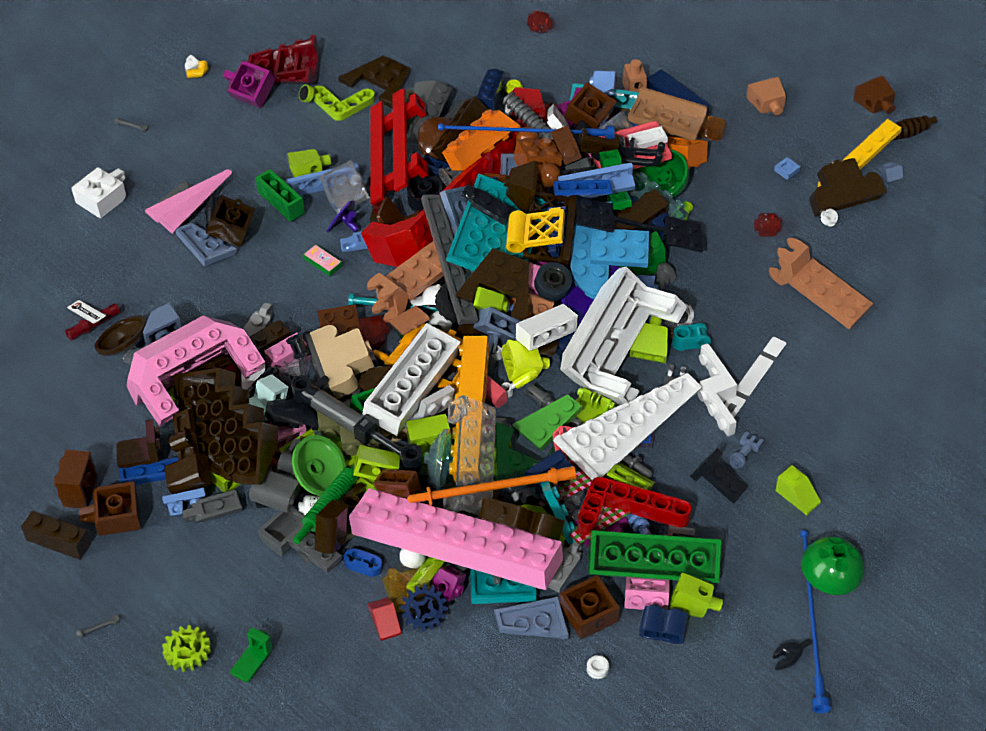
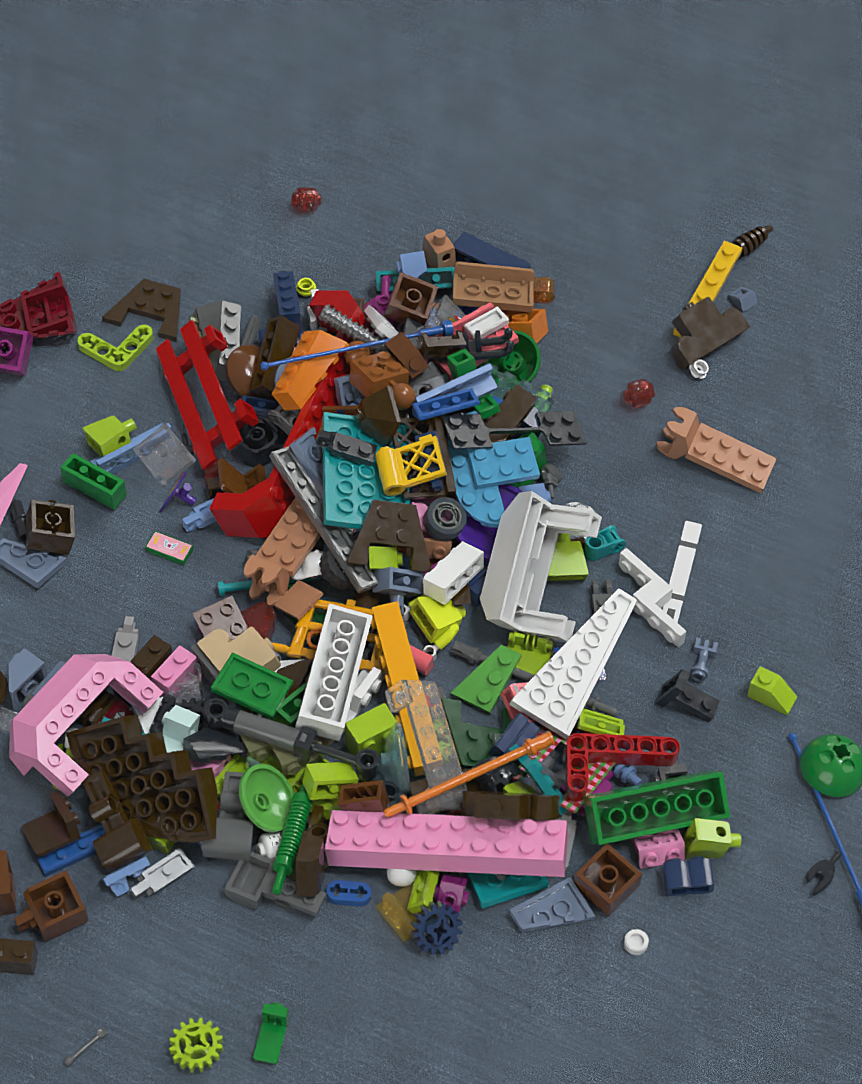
camera: 20 degrees left, 5 degrees up
(298, 346) = (190, 663): black bush -> none
(306, 93) = (73, 346): tile -> none
(338, 373) = (251, 686): none -> green tile
(384, 618) = (395, 949): slope -> none
(439, 322) = (330, 592): white piece -> none
(767, 96) = (586, 238): nougat torso -> none
(787, 168) = (636, 320): medium blue plate -> none
(875, 95) = (700, 213): reddish brown torso -> none

